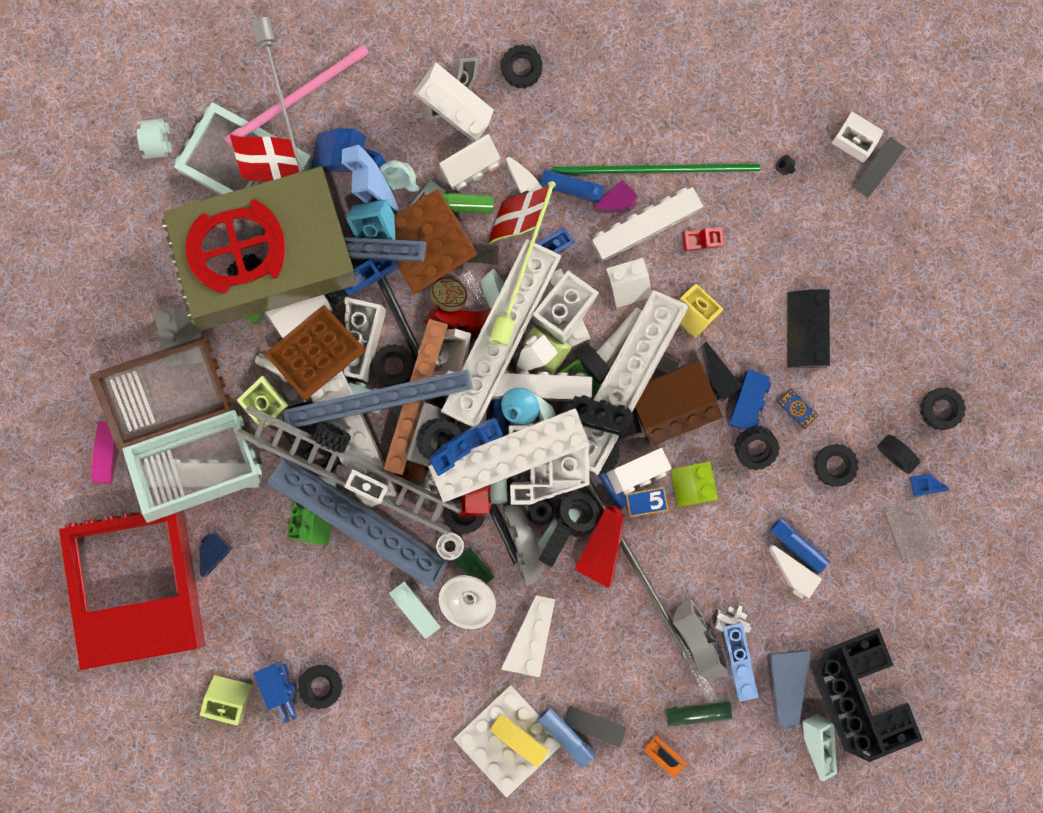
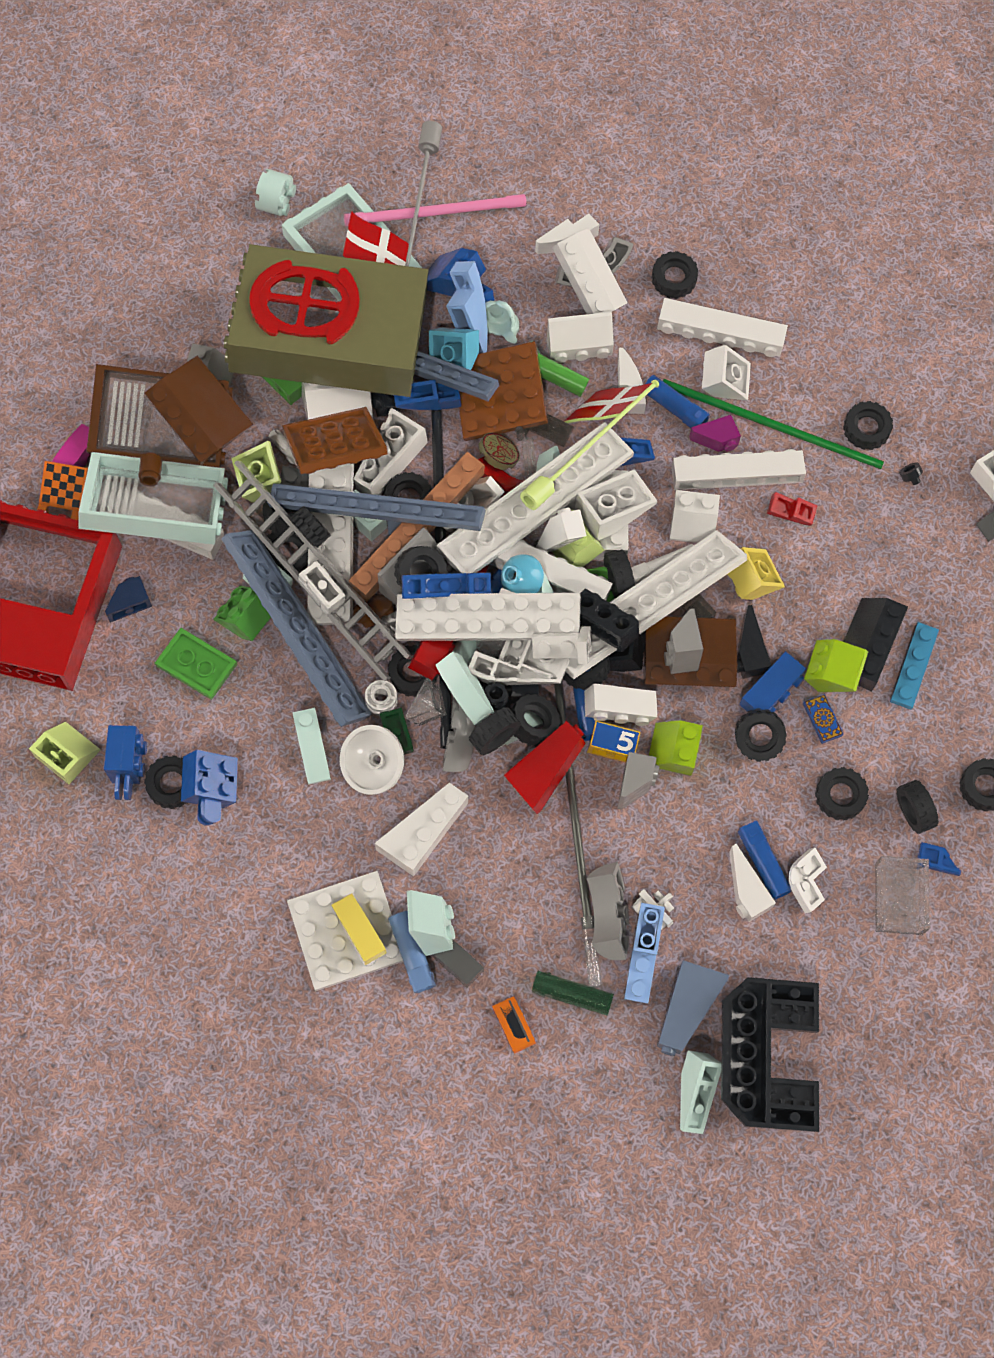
camera: 20 degrees right, 15 degrees down
(113, 485) = (62, 487): none -> orange flag
(177, 442) = (150, 469): none -> reddish brown brick
(192, 376) = (198, 409): none -> reddish brown slope
(292, 582) = (196, 663): none -> bright green plate
(352, 678) = (209, 782): none -> brick
(417, 68) = (563, 231): none -> white slope
(489, 536) = (427, 704): none -> clear slope
(516, 518) = (465, 687): none -> light aqua slope
(571, 712) = (430, 922): none -> light aqua slope
(581, 99) = (722, 327): none -> white brick
(581, 456) = (563, 645): none -> white bracket
(602, 141) = (726, 374): none -> white slope
(673, 409) = (685, 645): none -> light grey slope
(677, 527) = (638, 776): none -> light grey slope
(734, 123) = (874, 411): none -> black tyre
(792, 365) = (835, 666): none -> lime slope
(833, 548) = (801, 880): none -> white plate
(850, 332) = (914, 665): none -> dark azure plate

